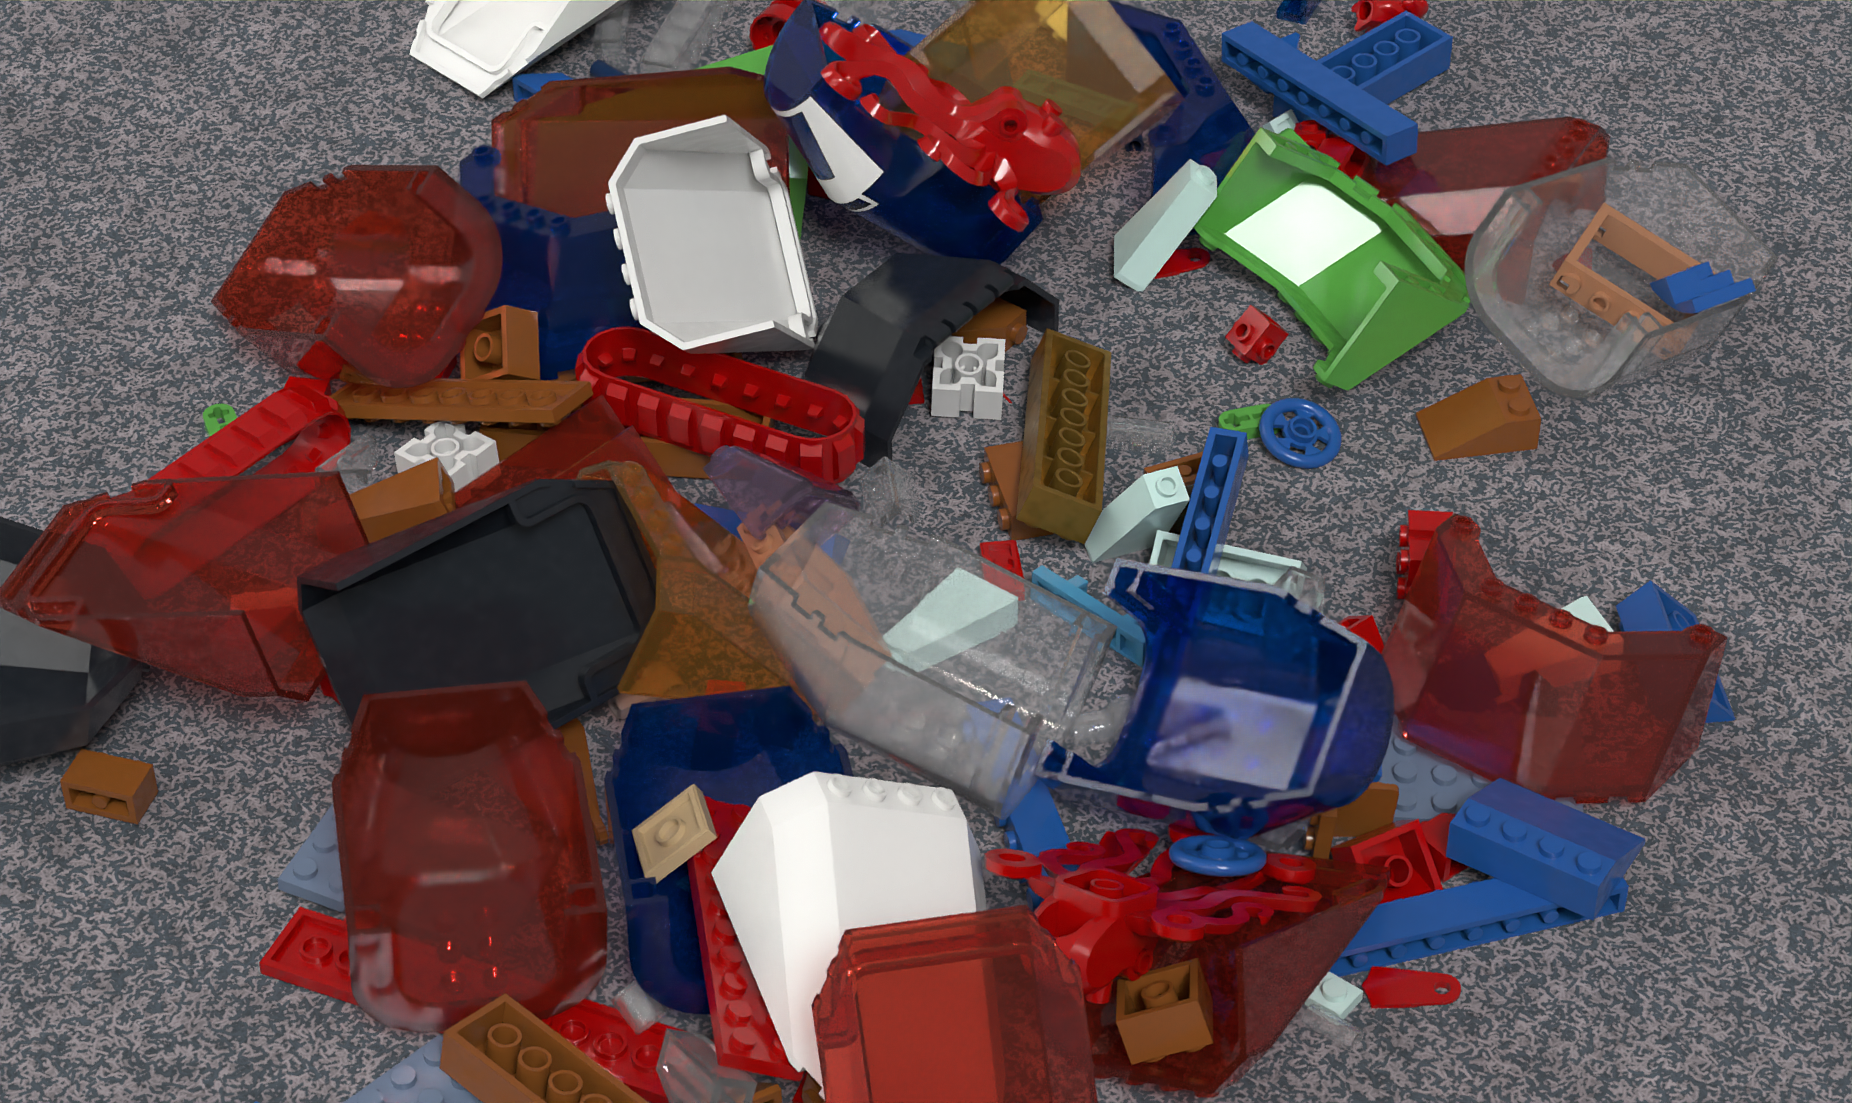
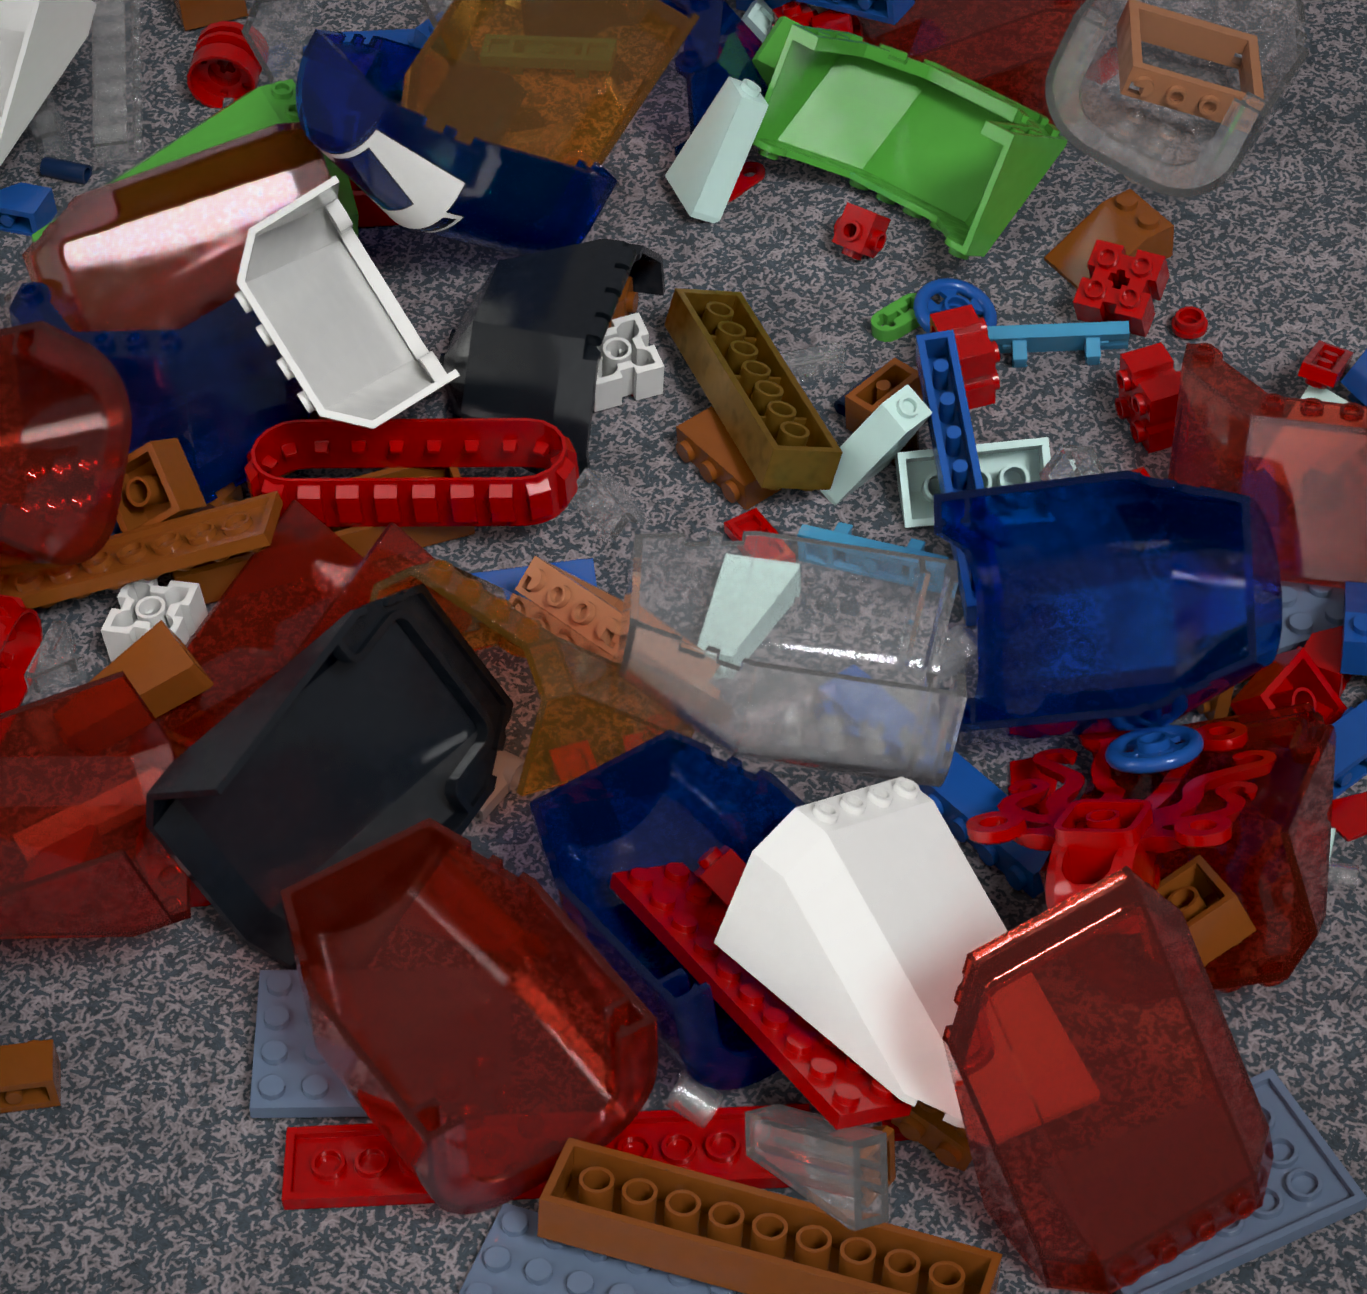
camera: 20 degrees left, 5 degrees up
(674, 833) = (639, 911): tan plate -> none
(771, 490) = (546, 541): clear purple windscreen -> none
(997, 137) = (551, 113): red animal -> none
(1276, 472) = (975, 352): none -> red brick
(1385, 485) = (1085, 336): none -> dark azure hinge
(1460, 458) = (1121, 287): none -> red brick
(1512, 511) = (1189, 323): none -> red plate
(1604, 584) = (1325, 365): none -> red plate
(1699, 288) = (1263, 56): blue slope -> none

